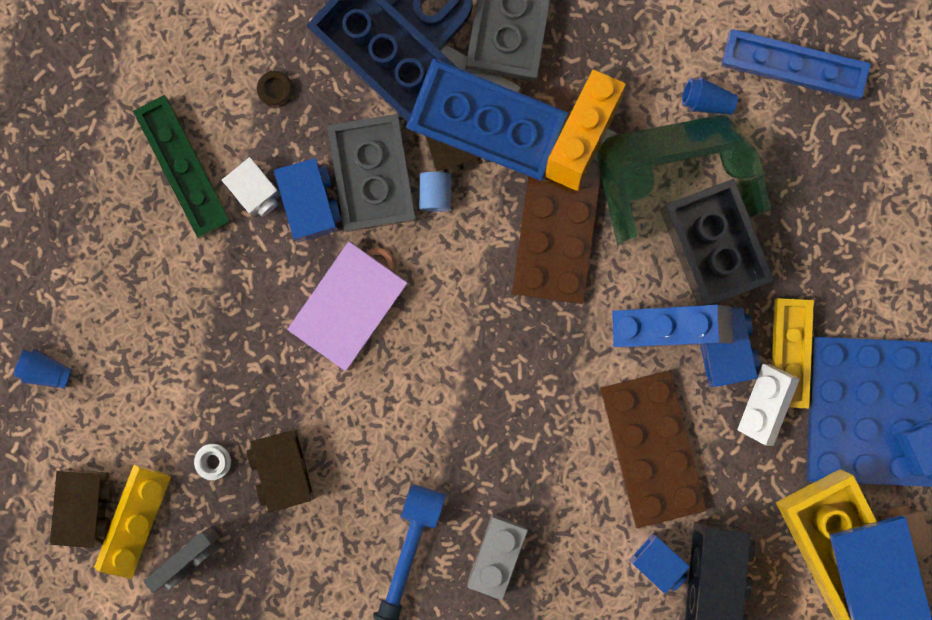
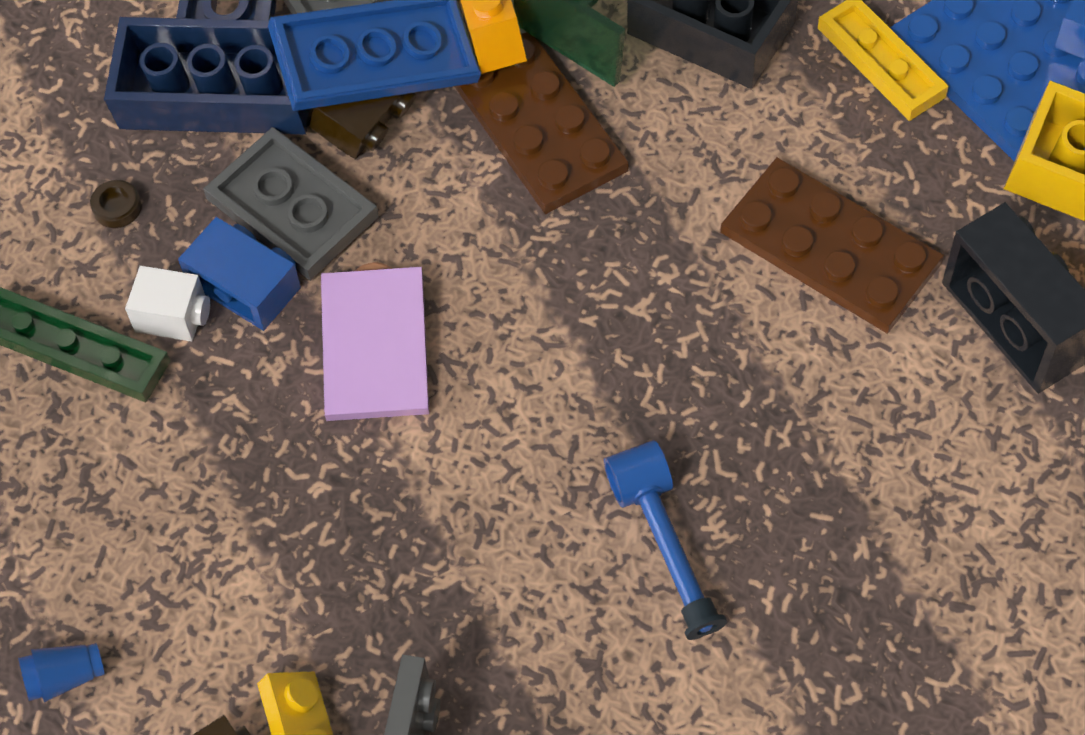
camera: 35 degrees left, 25 degrees down
(201, 461) = (348, 603): white plate -> none
(280, 471) = (442, 559): dark brown brick -> none
(435, 191) = (376, 170): medium blue gear -> none
(497, 557) = (767, 460): light grey brick -> none
(660, 564) = (948, 337): blue brick -> none
(673, 326) = (739, 97): blue brick -> none
(732, 362) = (811, 94): blue brick -> none
(768, 404) = (905, 109): white plate -> none

